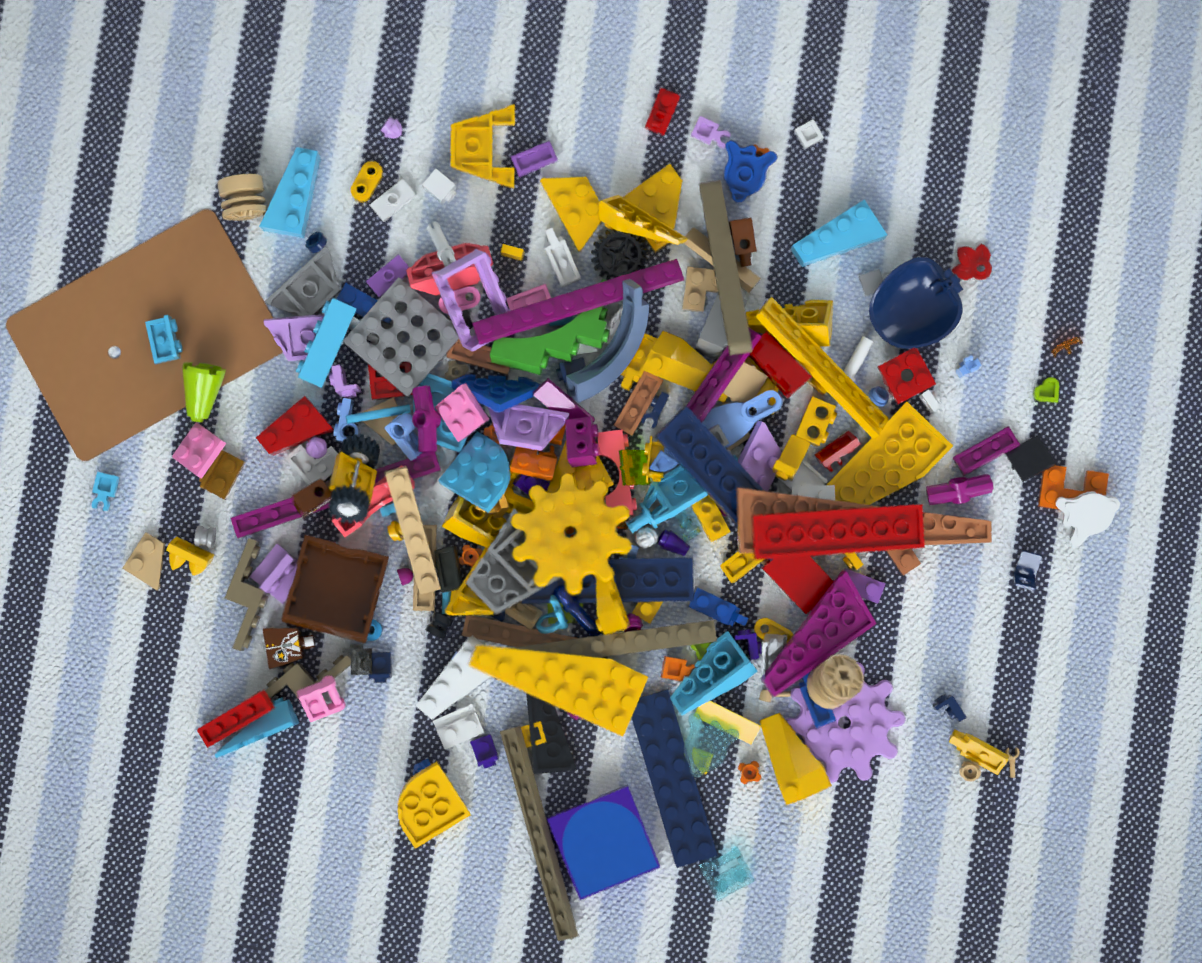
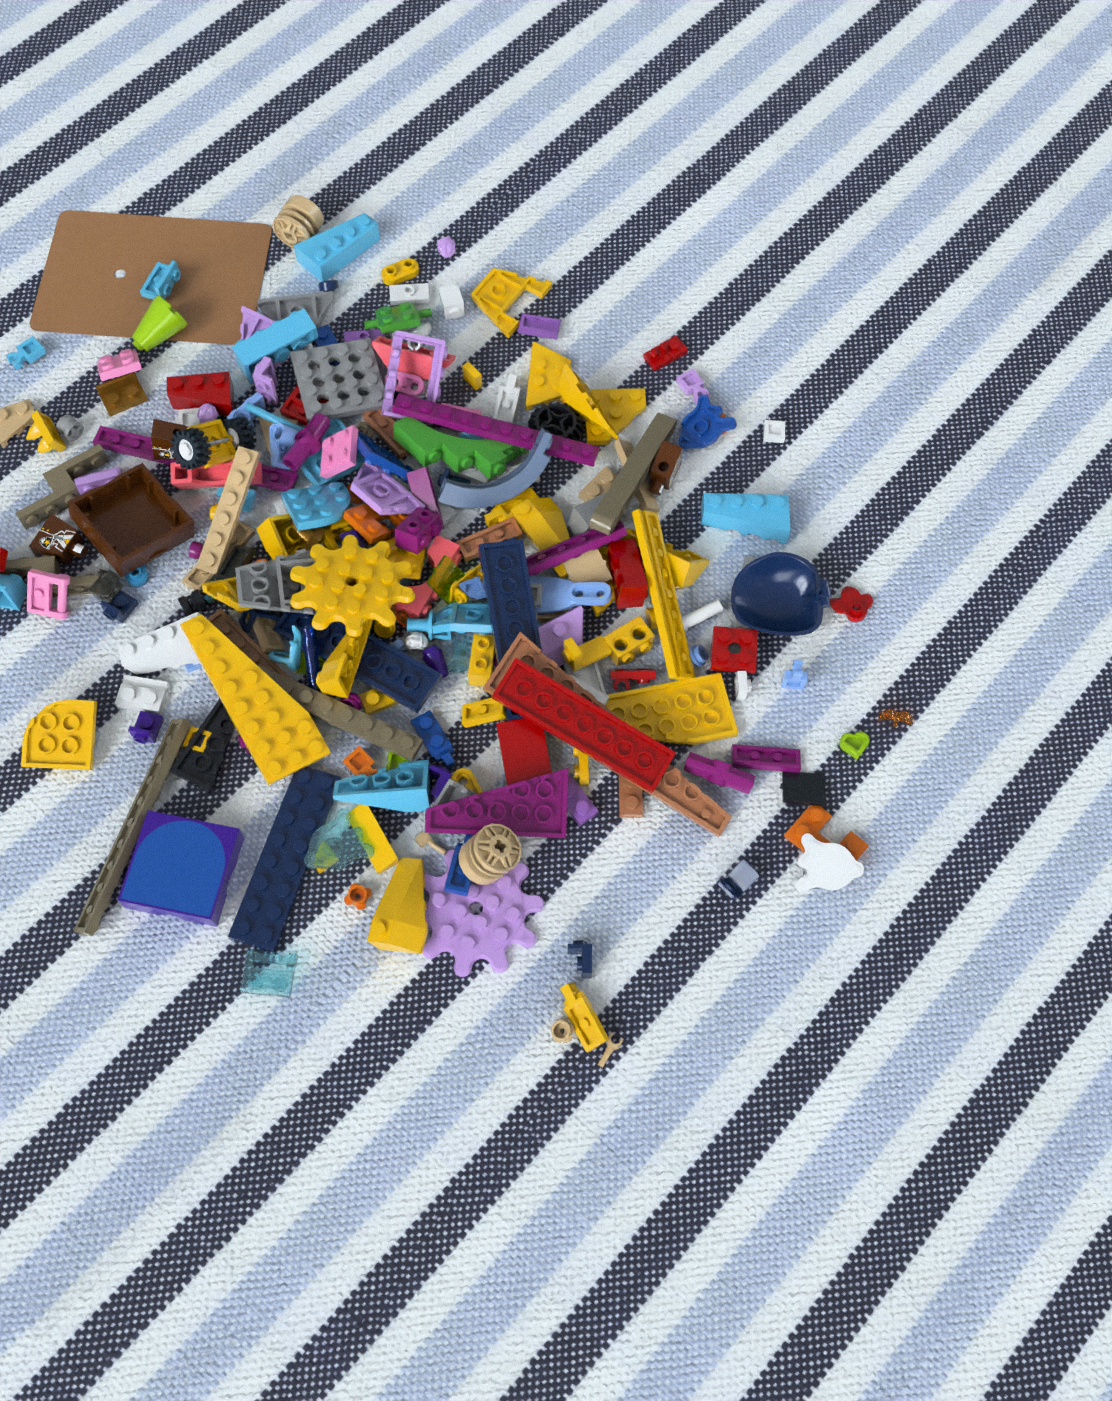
camera: 30 degrees right, 20 degrees down
(404, 236) = (397, 317): none -> bright green plate

